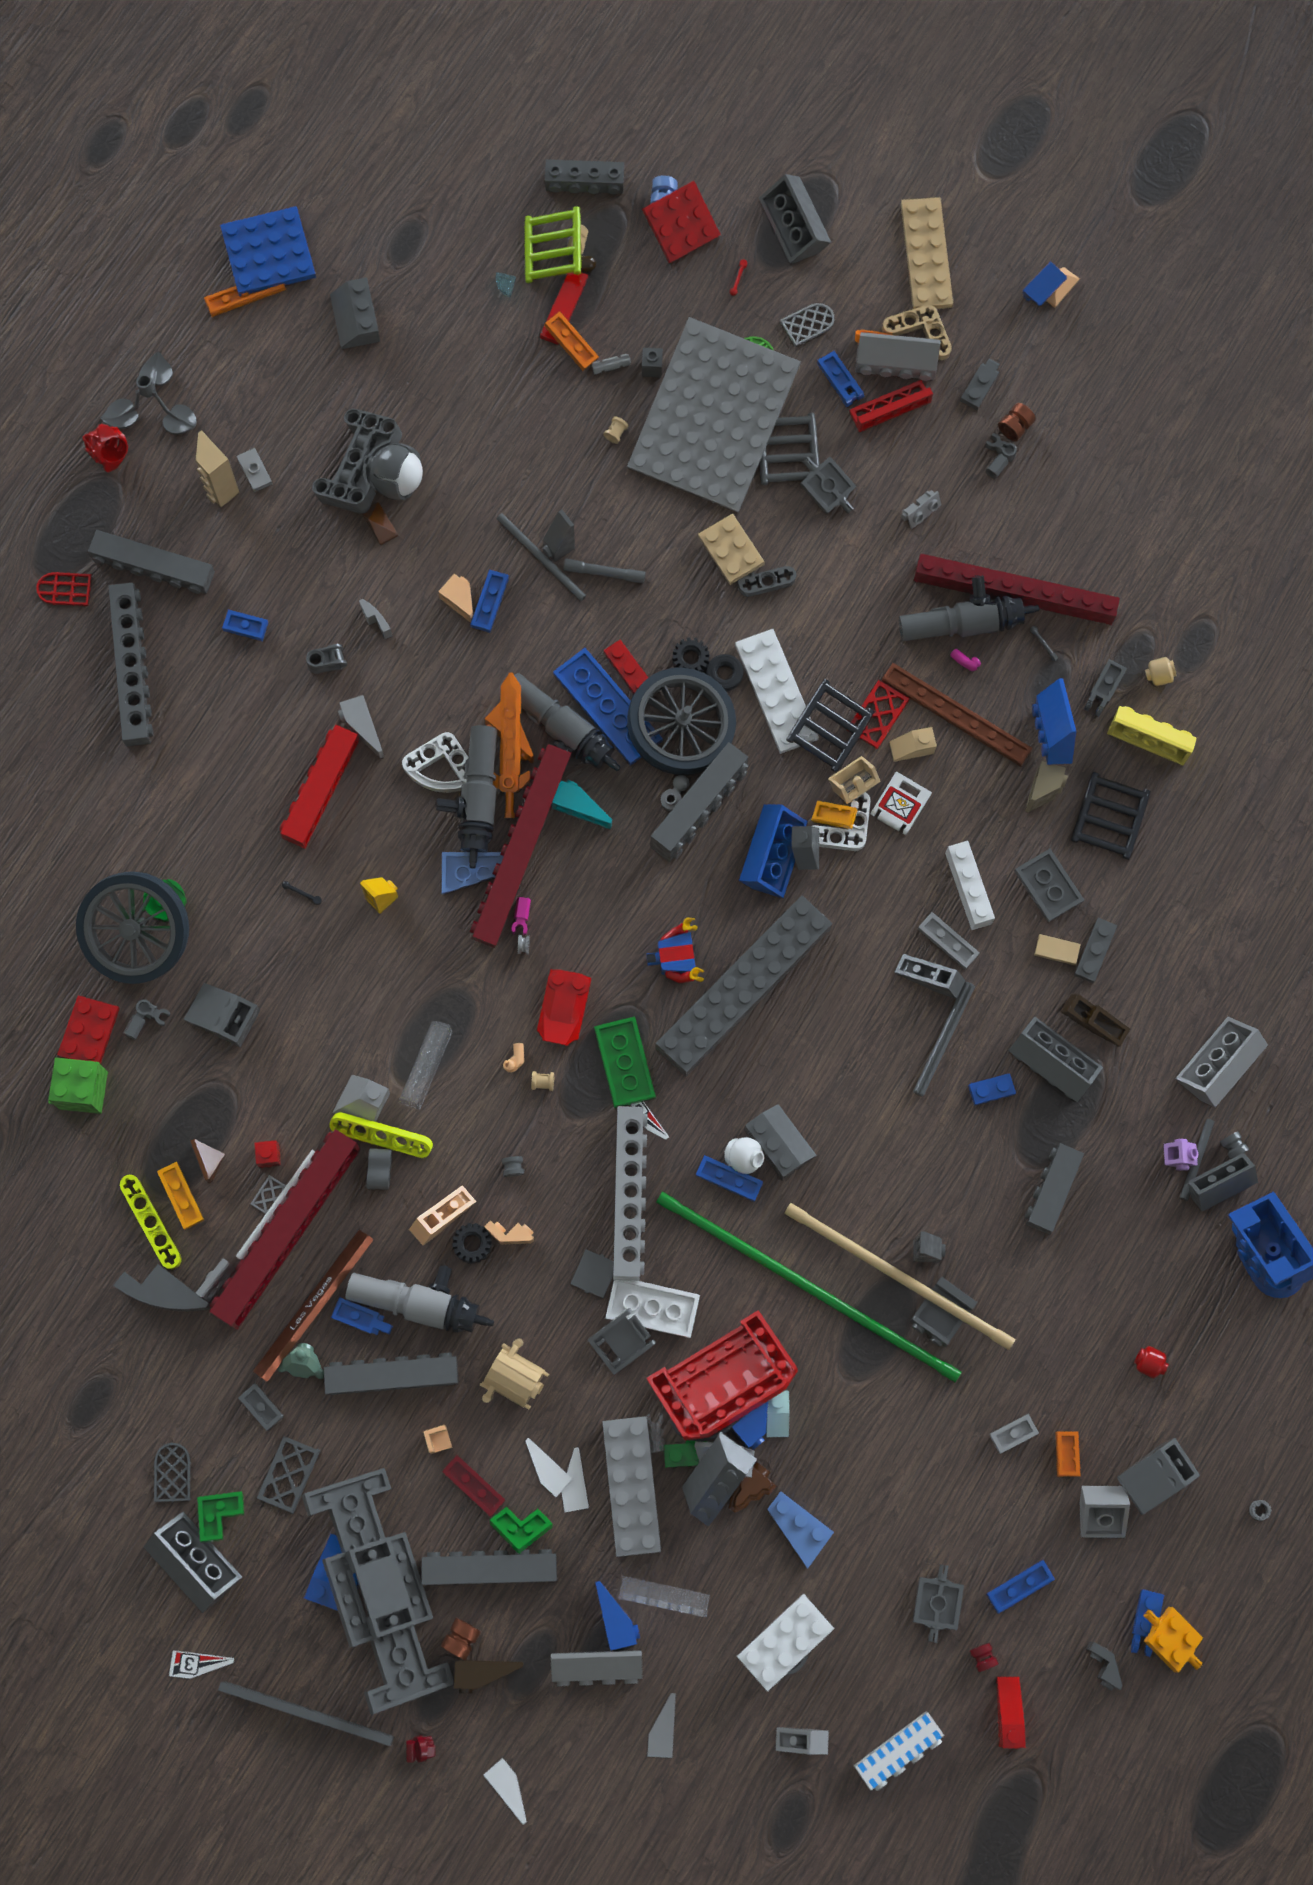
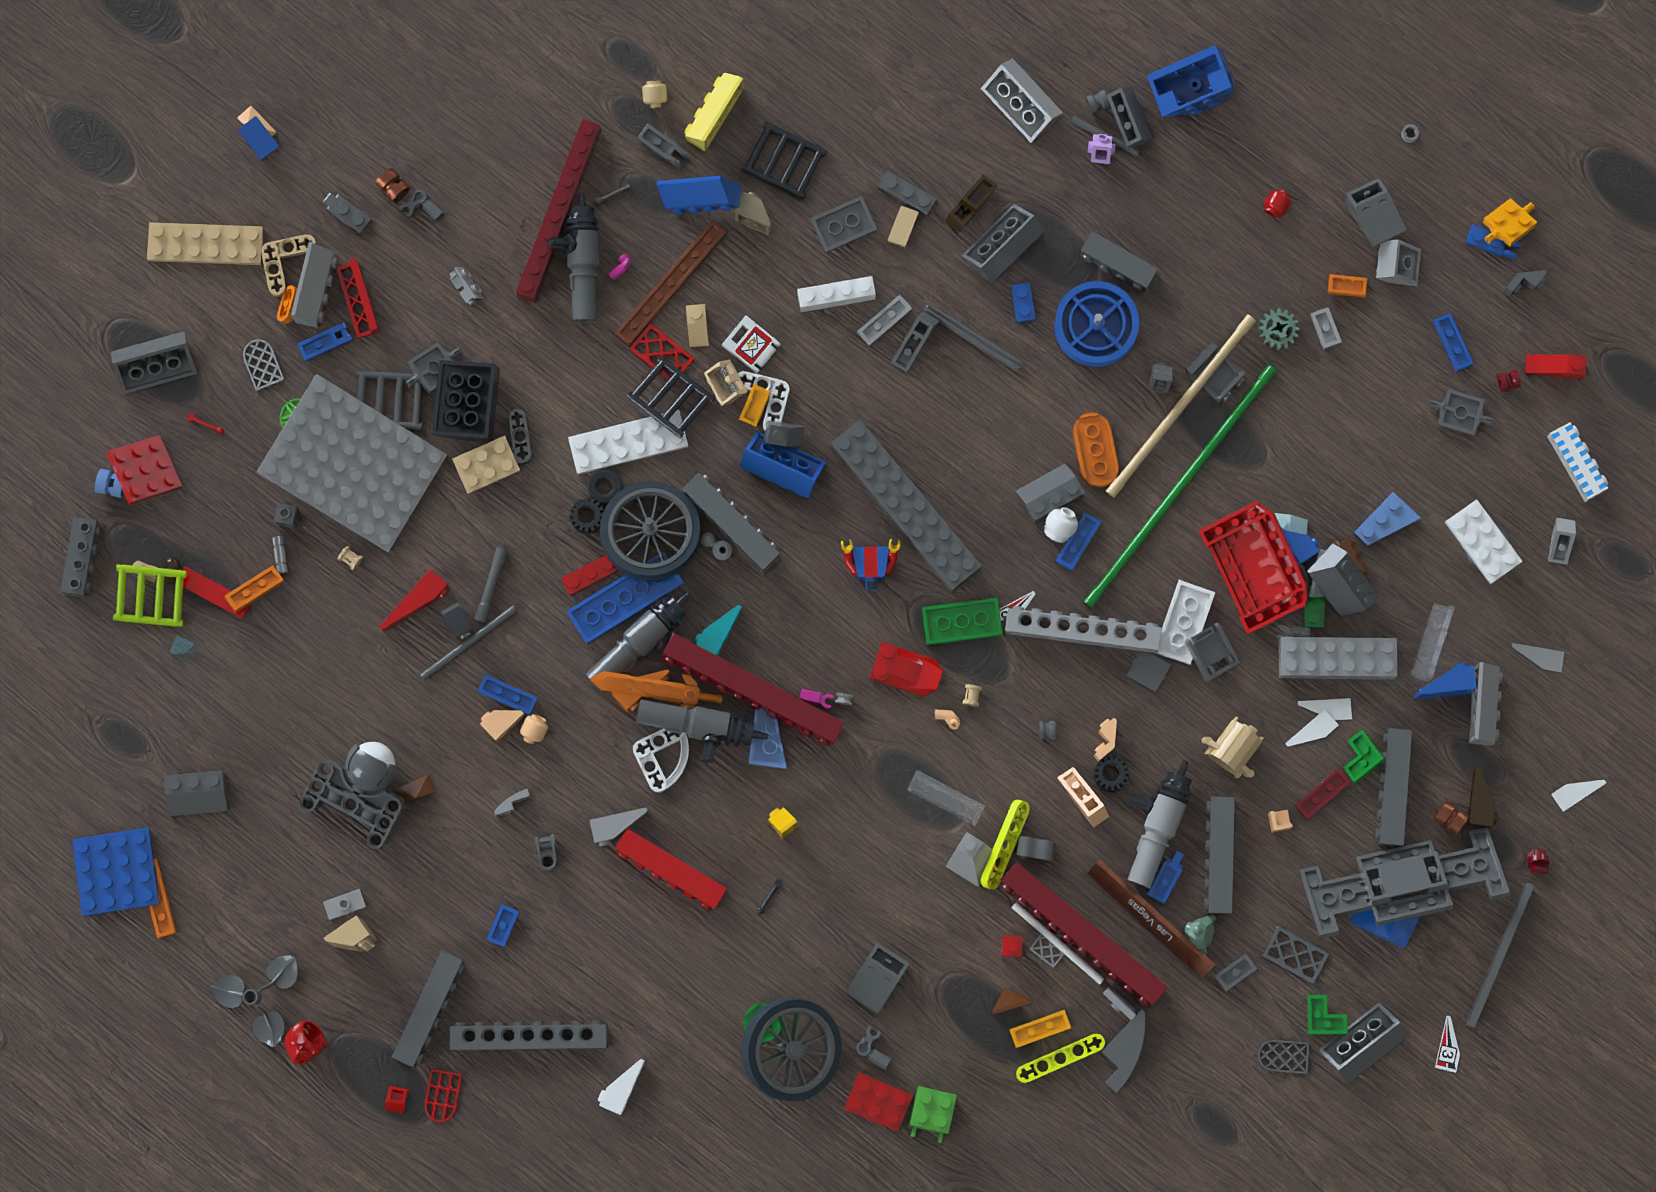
camera: 80 degrees left, 5 degrees up
(57, 544) = (396, 1099): none -> red slope
(76, 760) = (619, 1091): none -> white slope
(456, 630) = (534, 728): none -> light nougat head
(586, 505) = (425, 593): none -> red slope
(796, 520) = (466, 400): none -> black slope
(836, 1187) = (1095, 450): none -> orange tile
(979, 1171) = (1096, 324): none -> blue wheel
(998, 1369) = (1276, 321): none -> sand green gear

